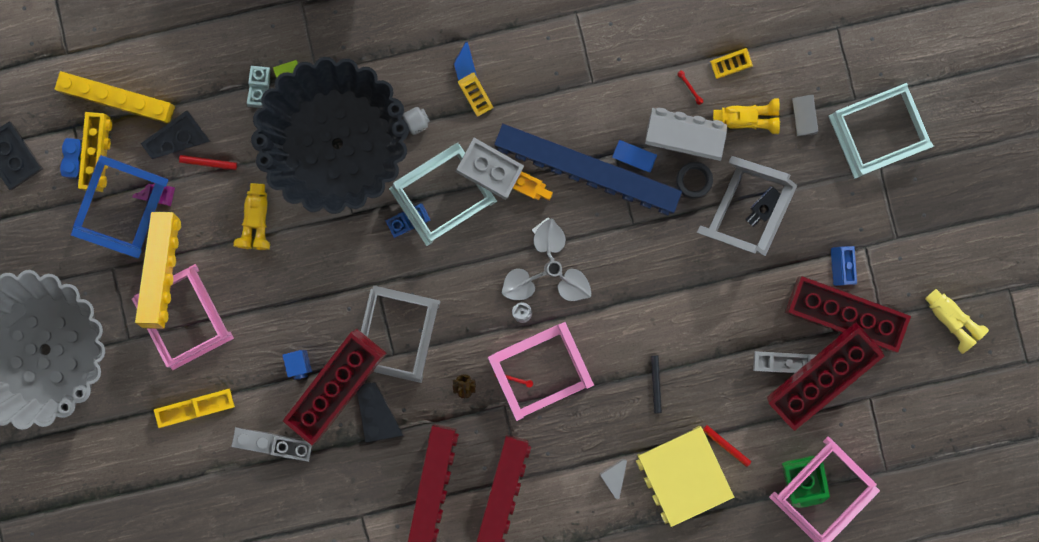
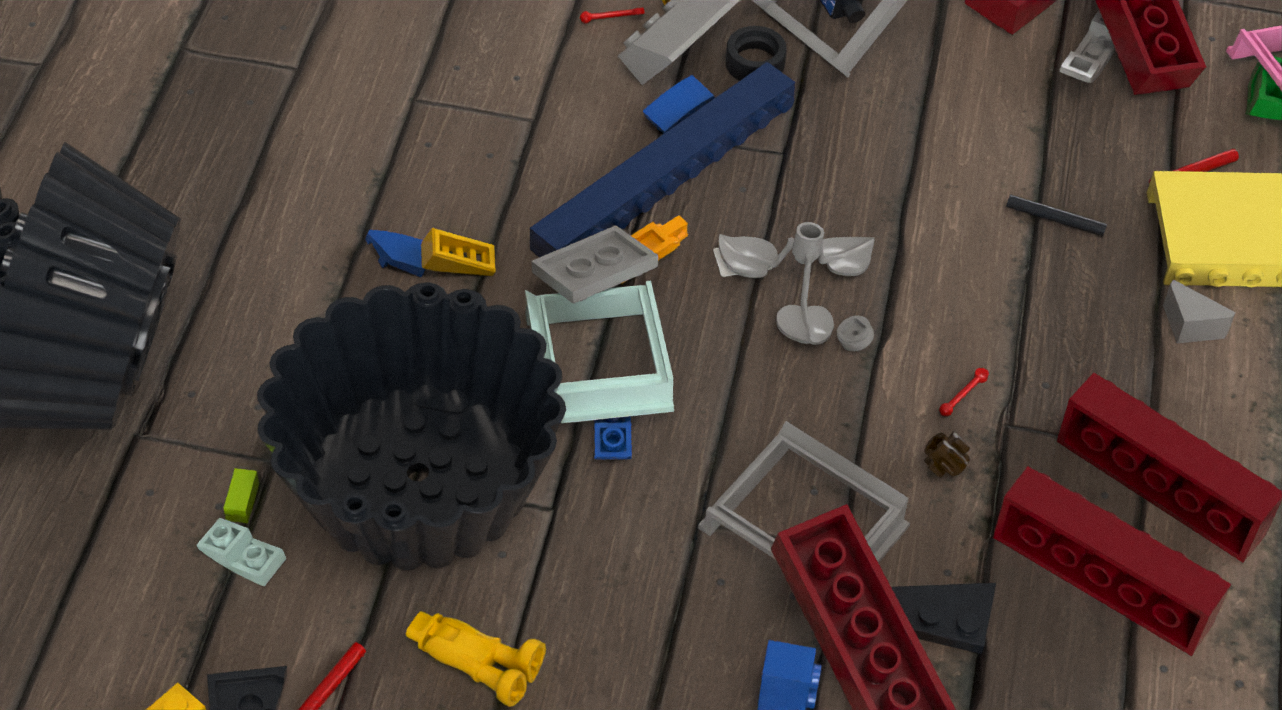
camera: 70 degrees left, 35 degrees down
(560, 329) = (970, 289): bright pink piece -> none

